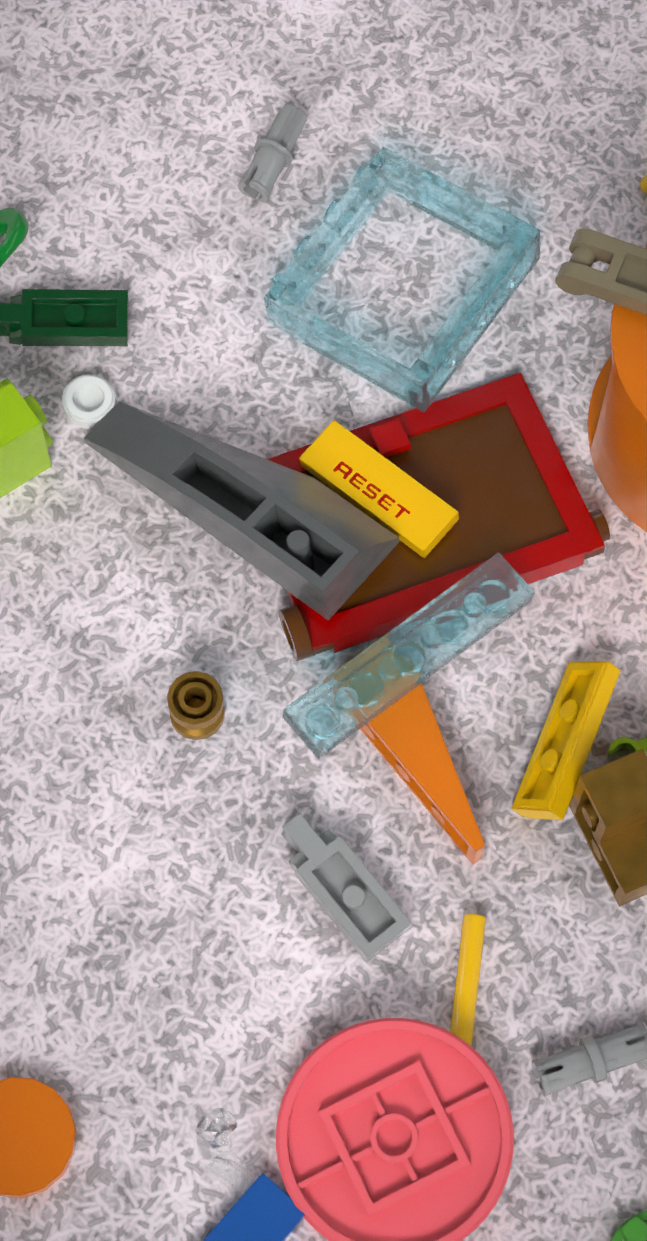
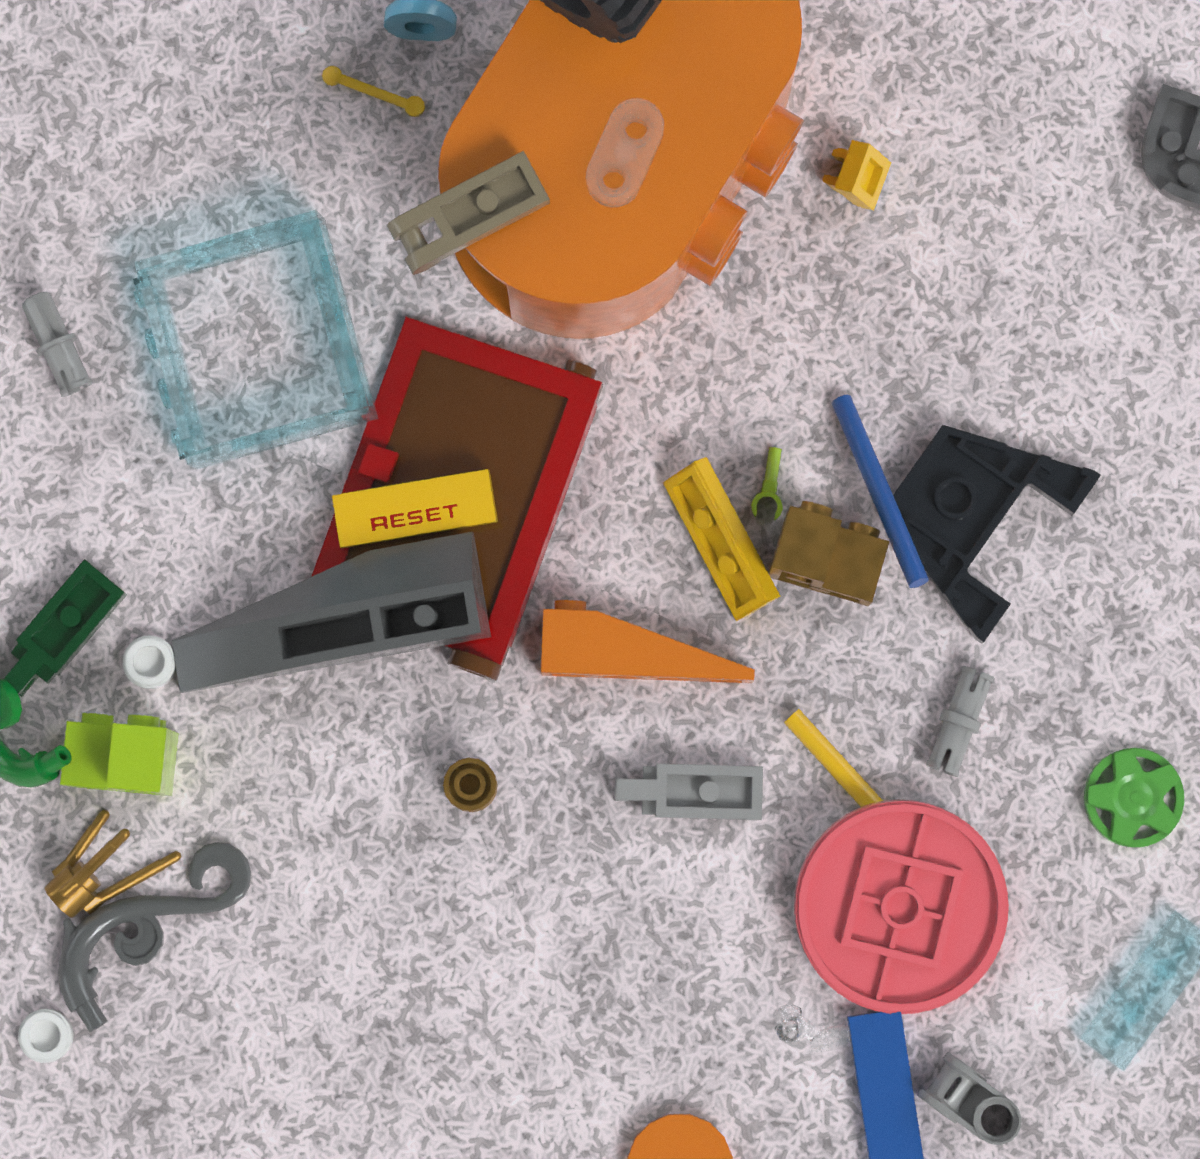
camera: 50 degrees left, 15 degrees up
(407, 655) = (573, 604): clear light blue plate -> none

